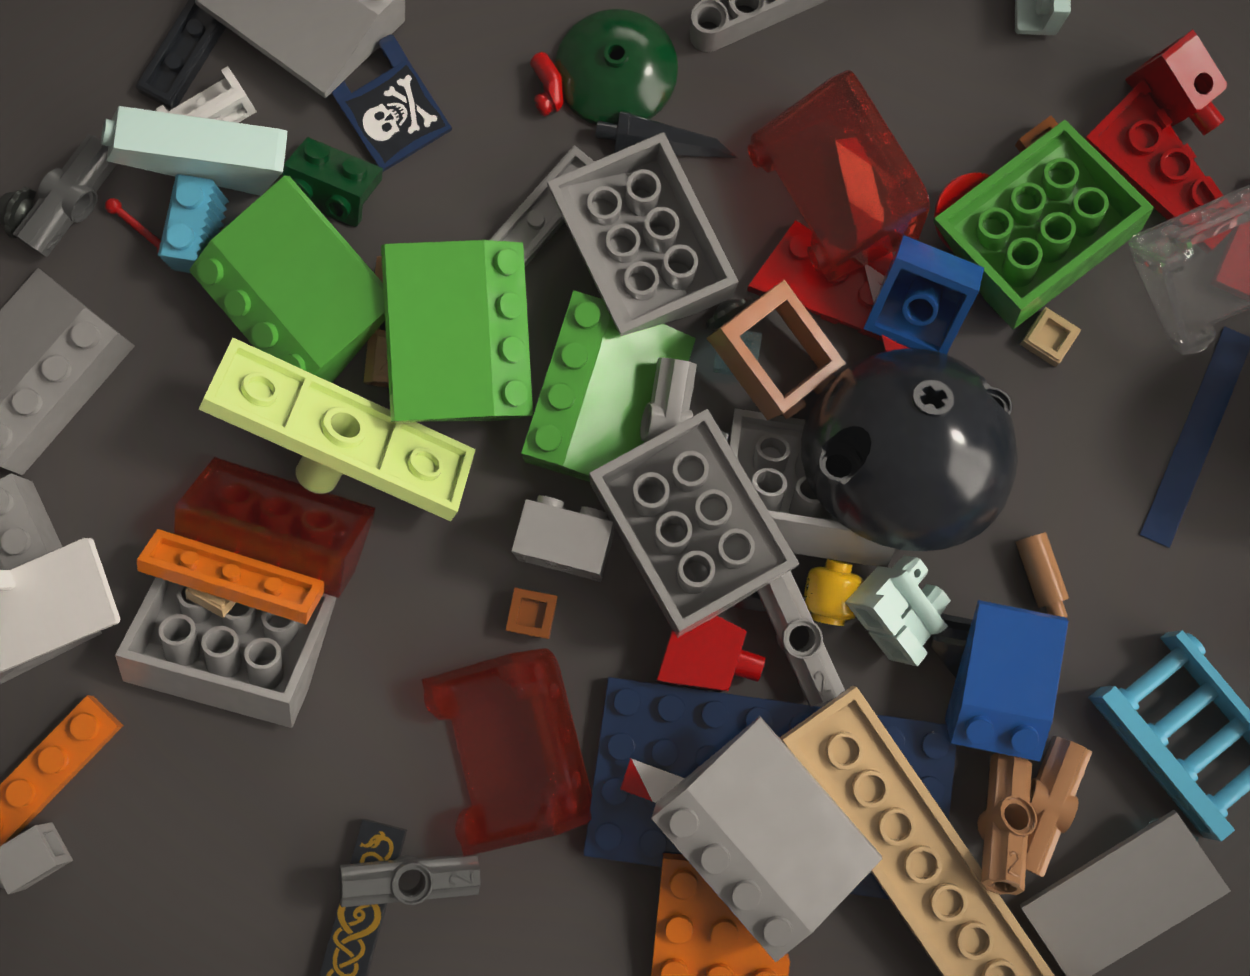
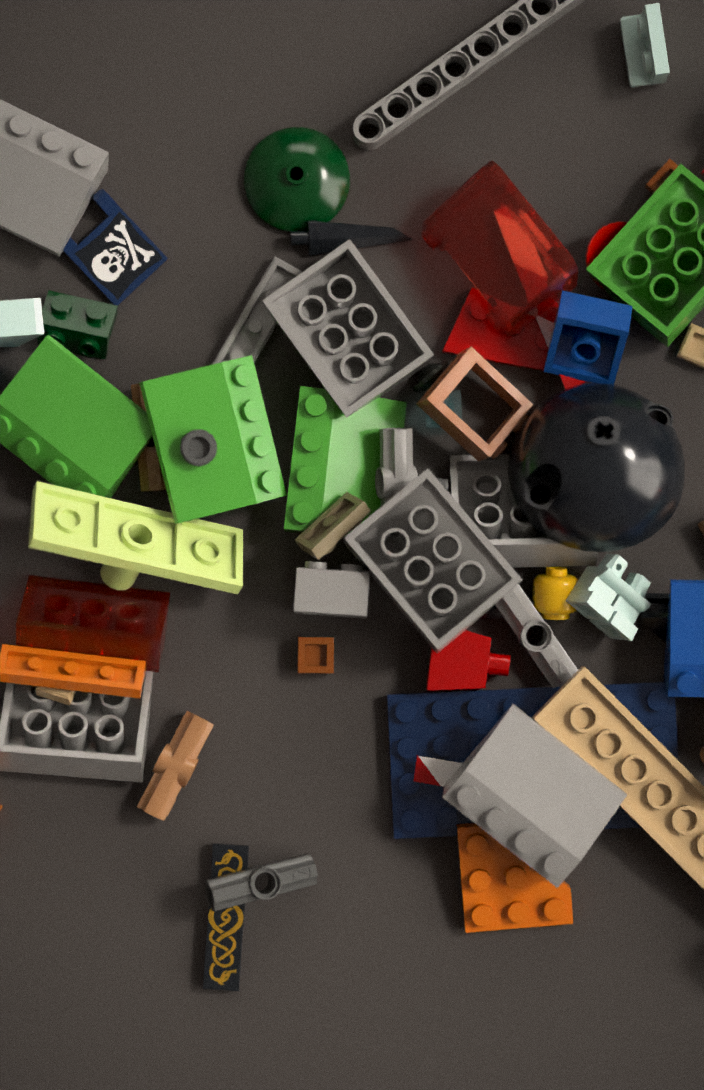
camera: 10 degrees left, 5 degrees up
(336, 716) = (175, 765): none -> medium nougat piece
(435, 333) = (198, 447): none -> dark grey tile
(513, 749) = (322, 766): clear red windscreen -> none
(551, 79) = (245, 203): red arm -> none
(566, 467) = (333, 525): none -> dark tan plate

